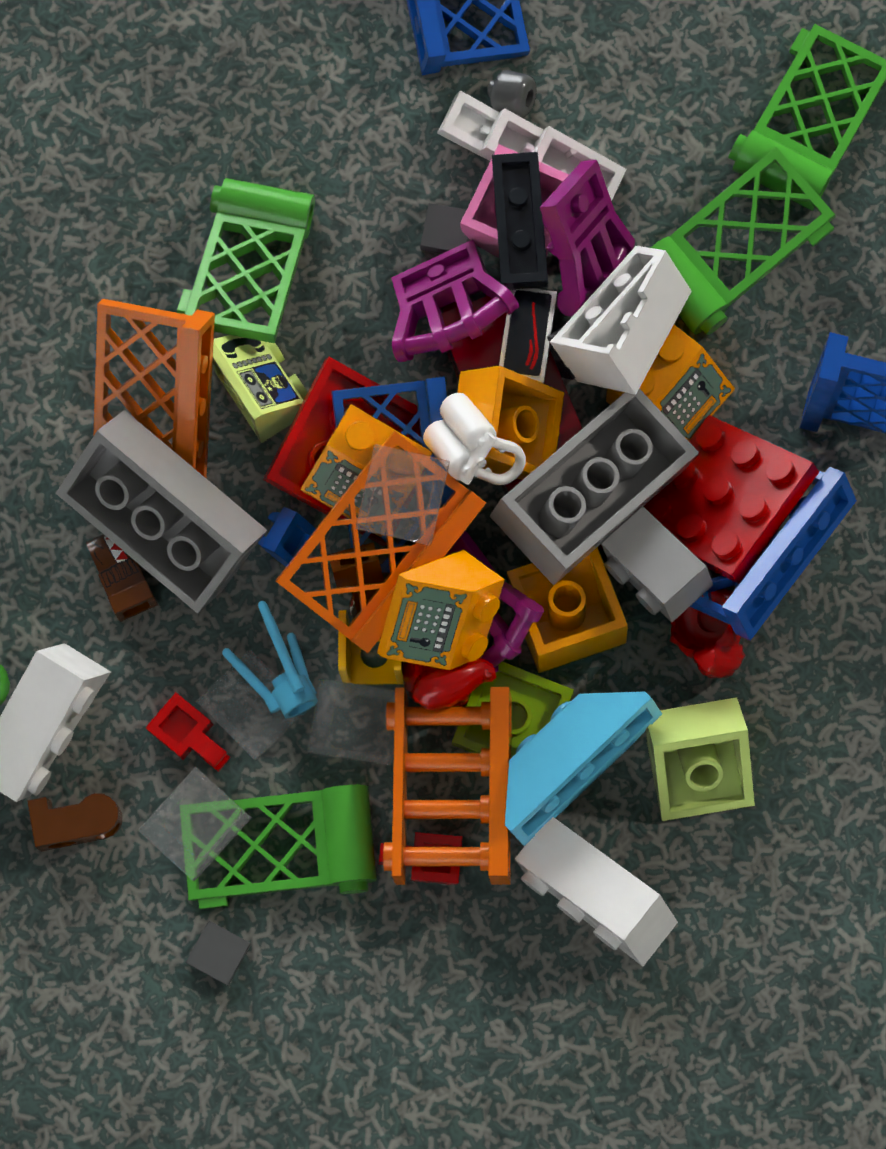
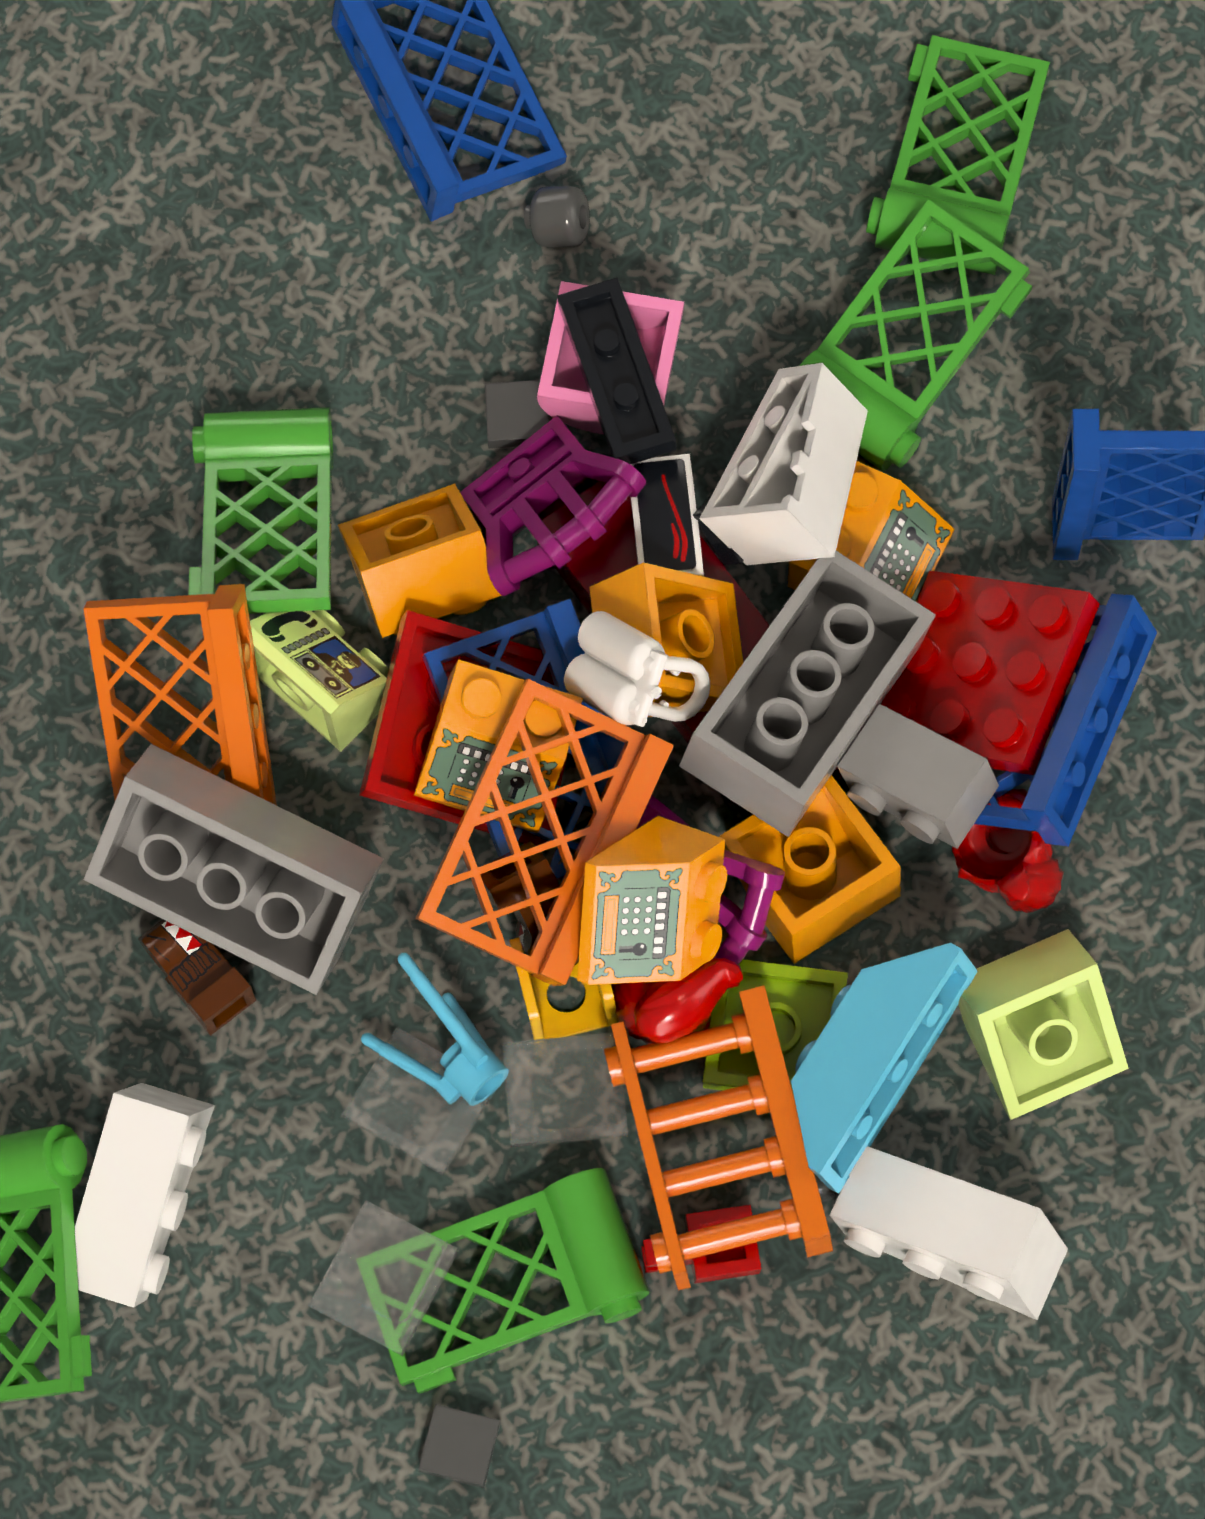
camera: 15 degrees left, 5 degrees down
(90, 820) = (234, 1313): reddish brown leg -> none
(184, 730) = (336, 1156): red plate -> none
(286, 535) = (409, 864): blue tile -> none
(349, 319) = (419, 559): none -> light orange slope
(402, 494) = (559, 760): clear piece -> none
(483, 128) = (533, 270): white slope -> none
(584, 234) = (707, 371): magenta plate -> none

